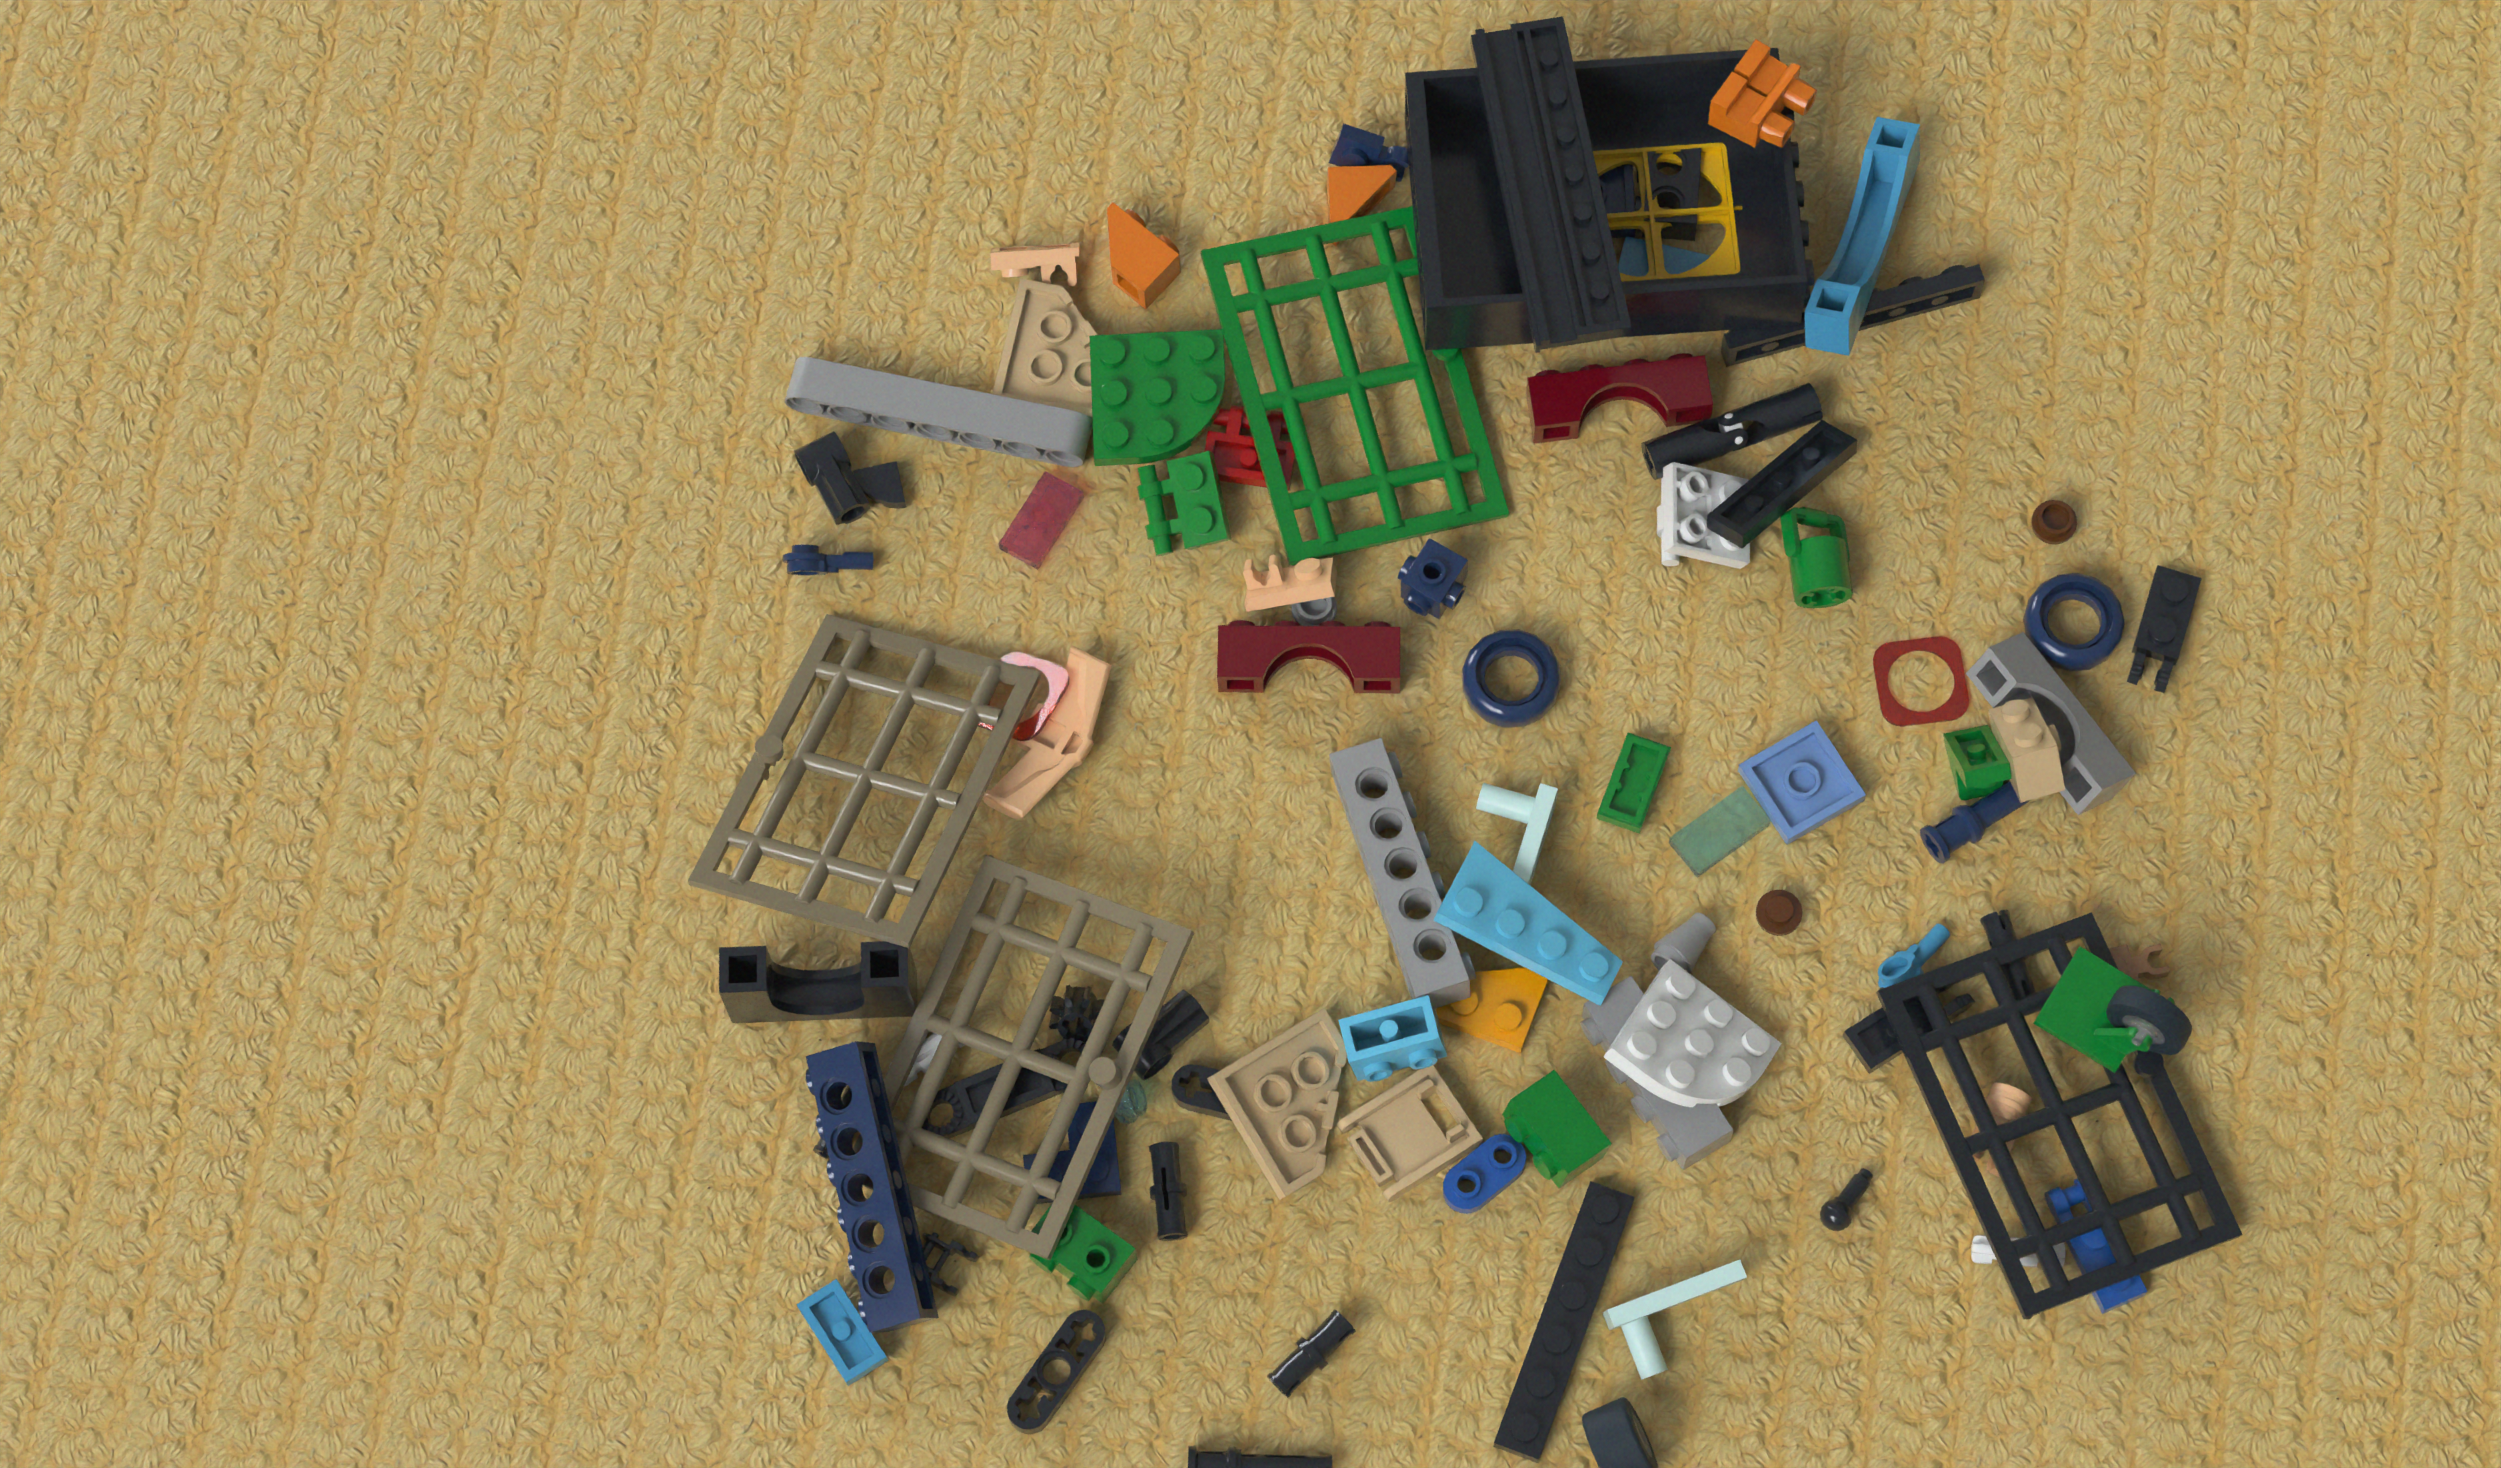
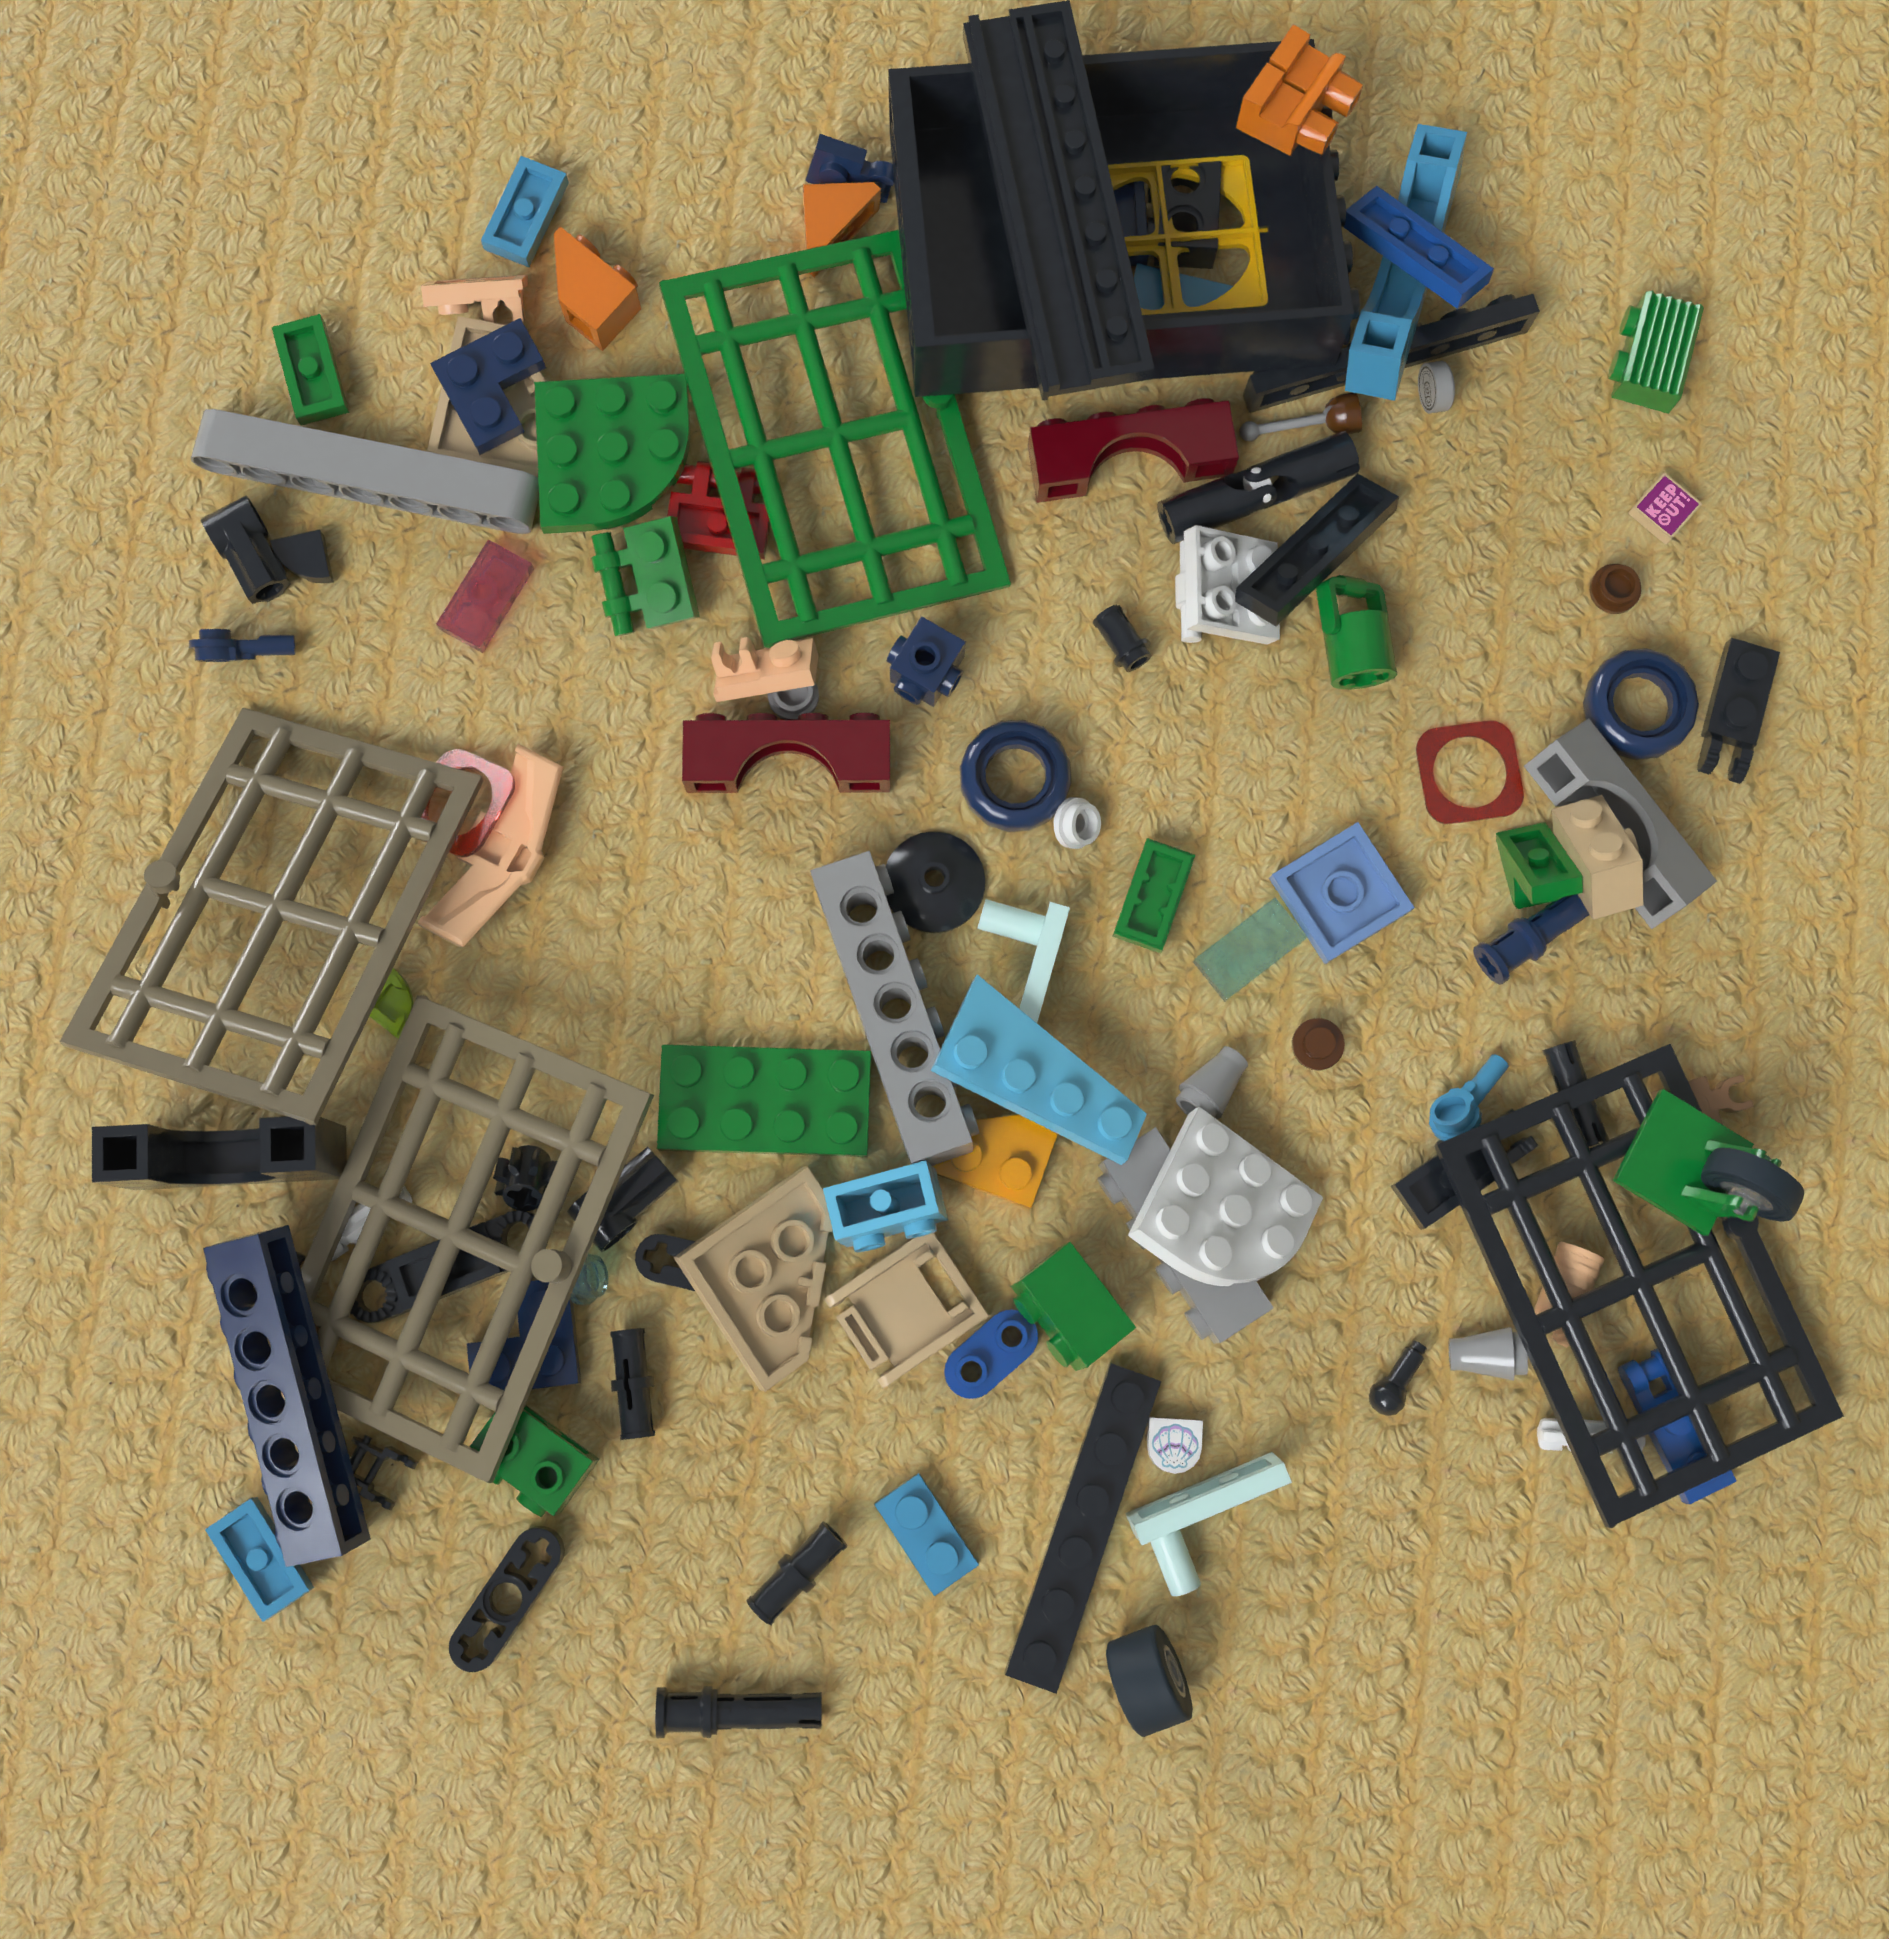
camera: 10 degrees left, 10 degrees up
(888, 324) = (310, 369): none -> green plate
(960, 872) = (393, 1004): none -> lime tile
(1037, 335) = (480, 373): none -> dark blue plate
(1078, 188) = (524, 211): none -> dark azure plate
(1286, 955) = (764, 1100): none -> green plate
(1425, 1325) = (926, 1534): none -> dark azure plate
(1444, 790) = (938, 907): none -> black dish
(1565, 719) = (1076, 823): none -> white plate
(1613, 568) = (1122, 638): none -> black pin
(1646, 1252) = (1174, 1443): none -> tile
(1806, 368) = (1340, 414): none -> hinge
(1871, 224) = (1417, 247): none -> blue plate
(1893, 345) = (1436, 387): none -> light grey tile
(1927, 1178) = (1490, 1354): none -> light grey cone
(2093, 315) = (1655, 352): none -> green brick
(2101, 452) = (1665, 508): none -> tile

